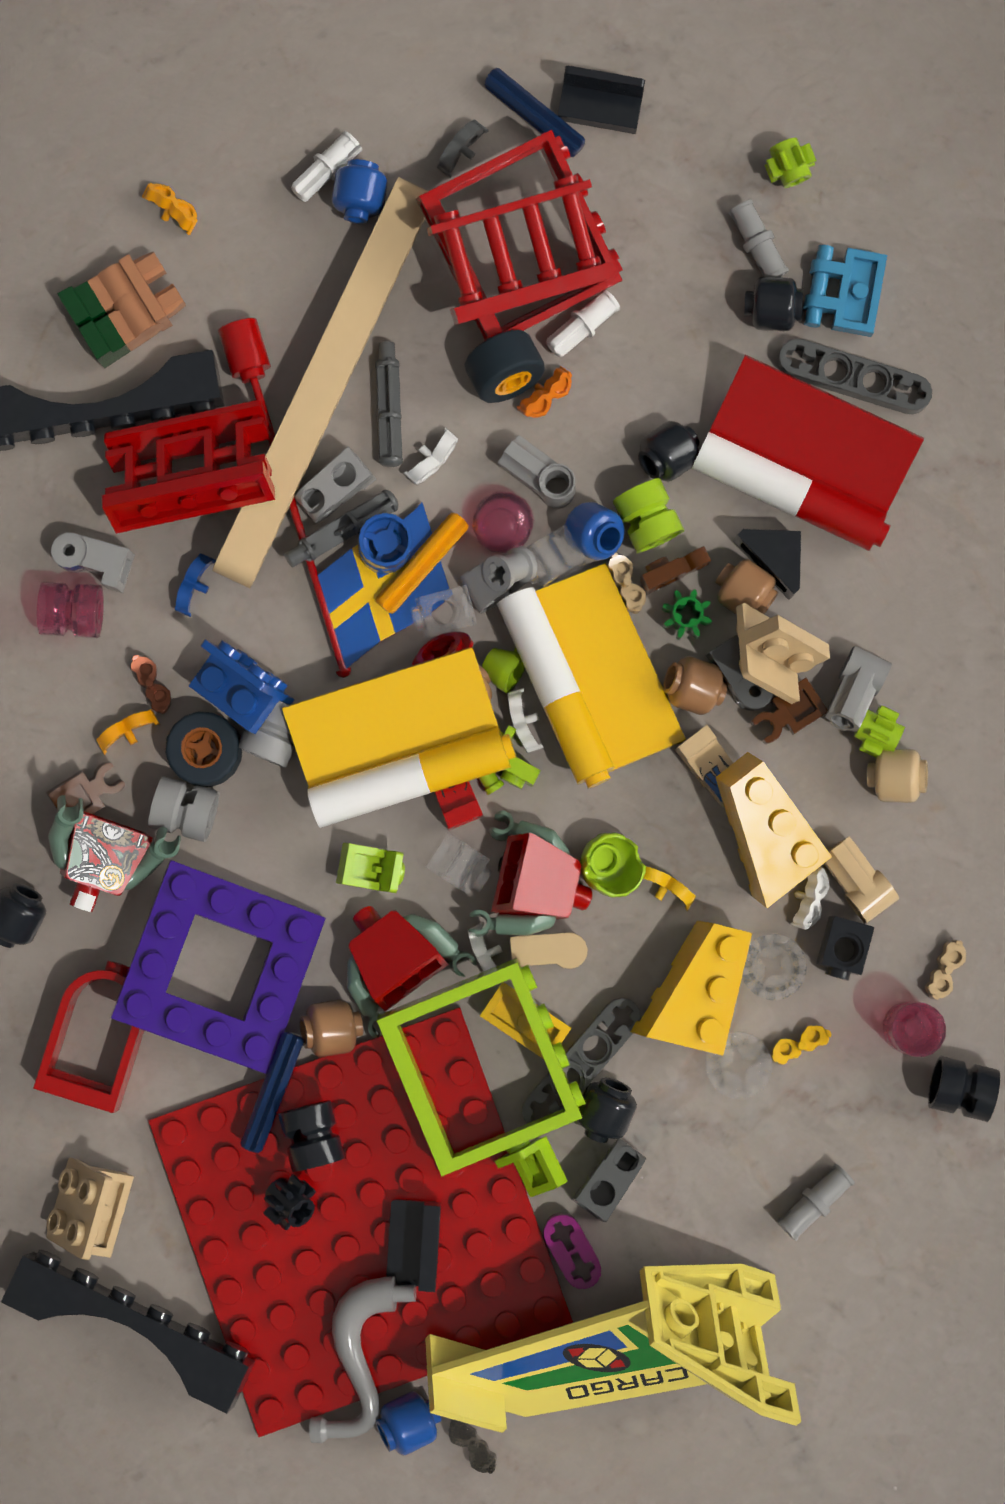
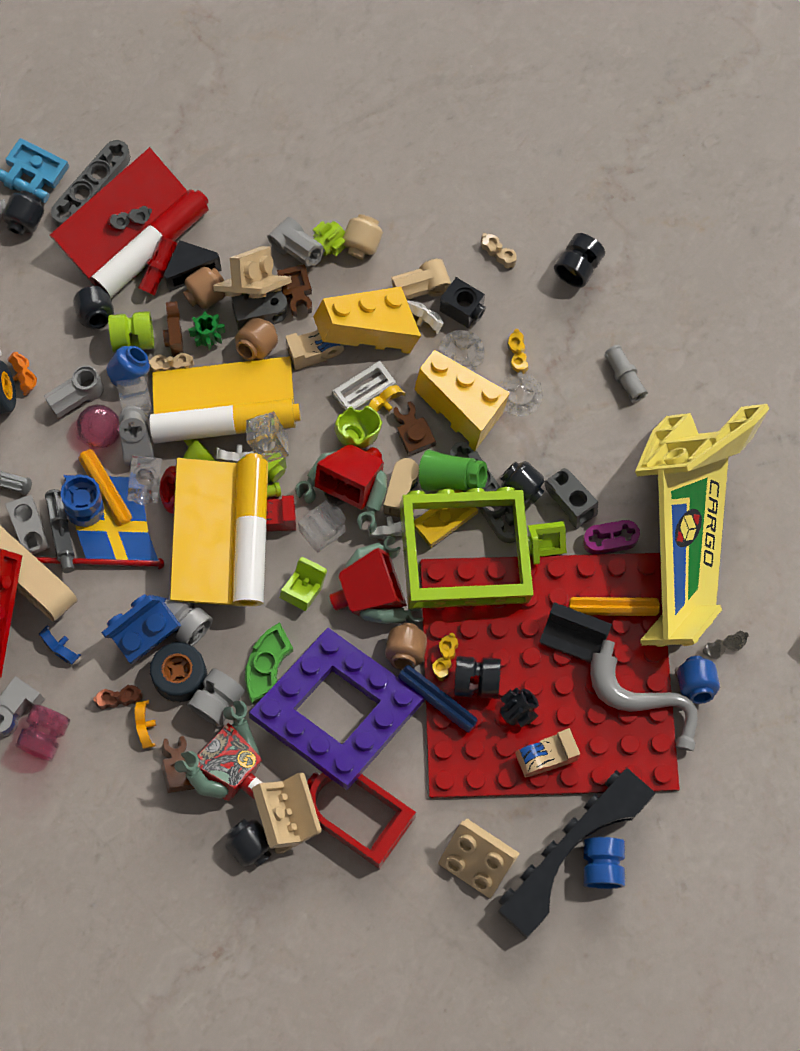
camera: 70 degrees left, 15 degrees down
(60, 951) = (286, 812): none -> tan bracket
(127, 1369) = (604, 863): none -> blue wheel
(241, 1257) = (548, 754): none -> tan leg
(255, 852) = (265, 660): none -> bright green tile
(319, 1084) = (447, 648): none -> yellow piece
(433, 459) = (37, 458): white piece -> none
(470, 1284) = (615, 606): none -> light orange axle
(544, 754) = (267, 437): none -> clear brick
(583, 1012) = (446, 471): none -> bright green plant
(634, 942) = (414, 432): none -> reddish brown plate
(649, 832) = (361, 377): none -> white tile
(757, 514) = (157, 265): none -> red pin
(819, 459) = (137, 216): none -> dark grey piece
(914, 1028) = (530, 276): clear pink wheel -> none

